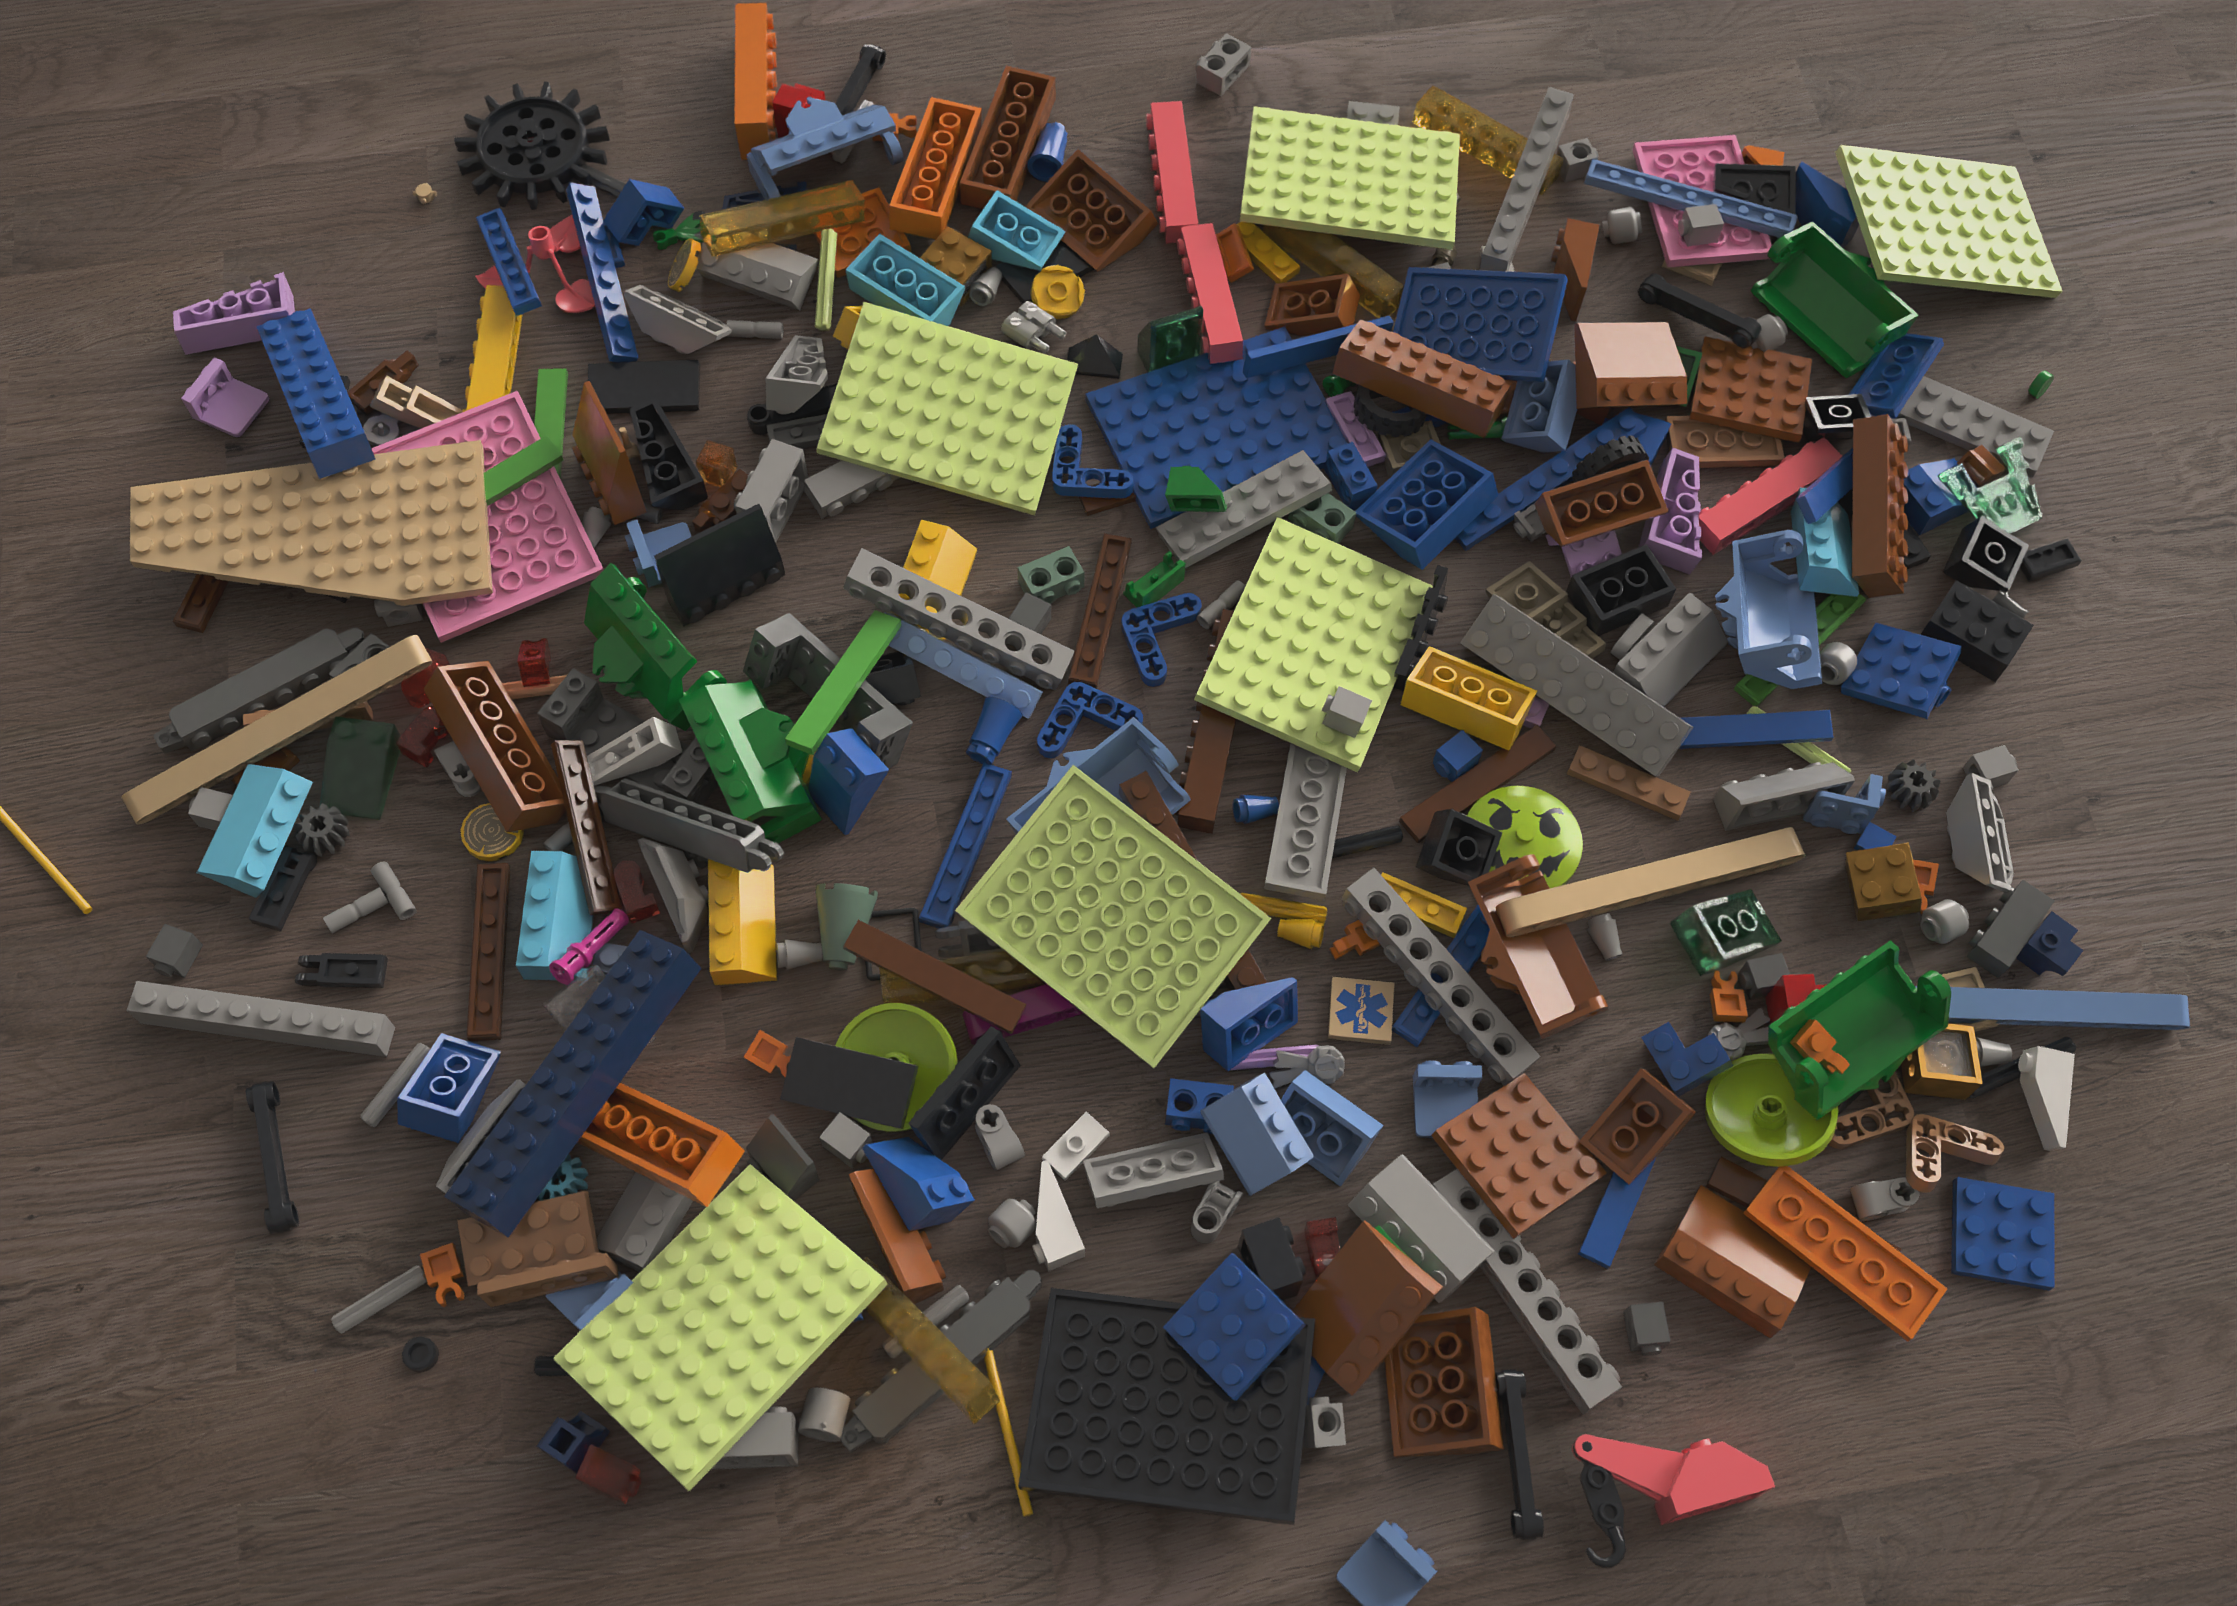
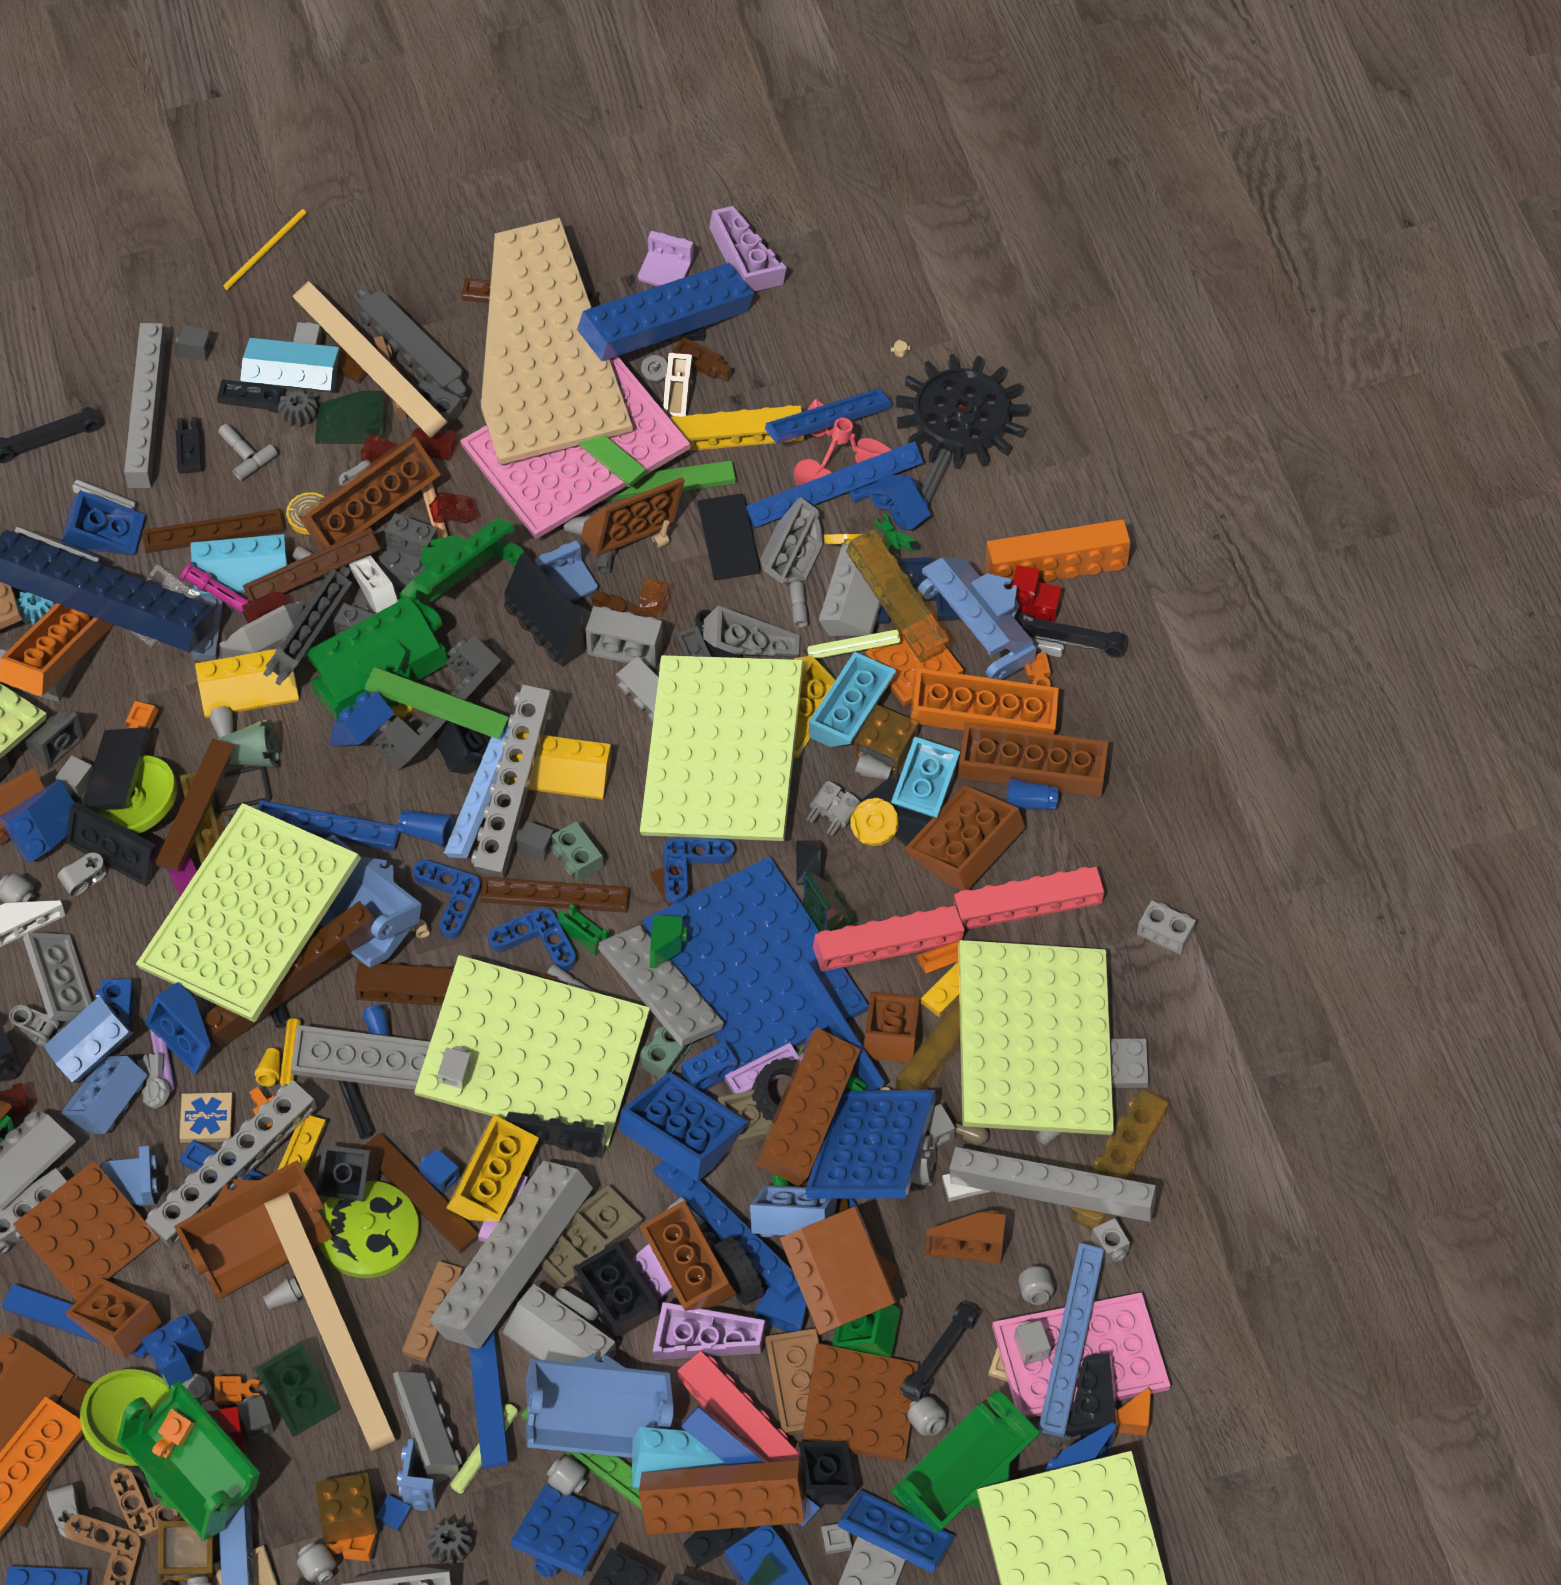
camera: 85 degrees right, 5 degrees down
(667, 466) = (649, 558): black wedge -> none
(1075, 1145) = (82, 929): white plate -> none

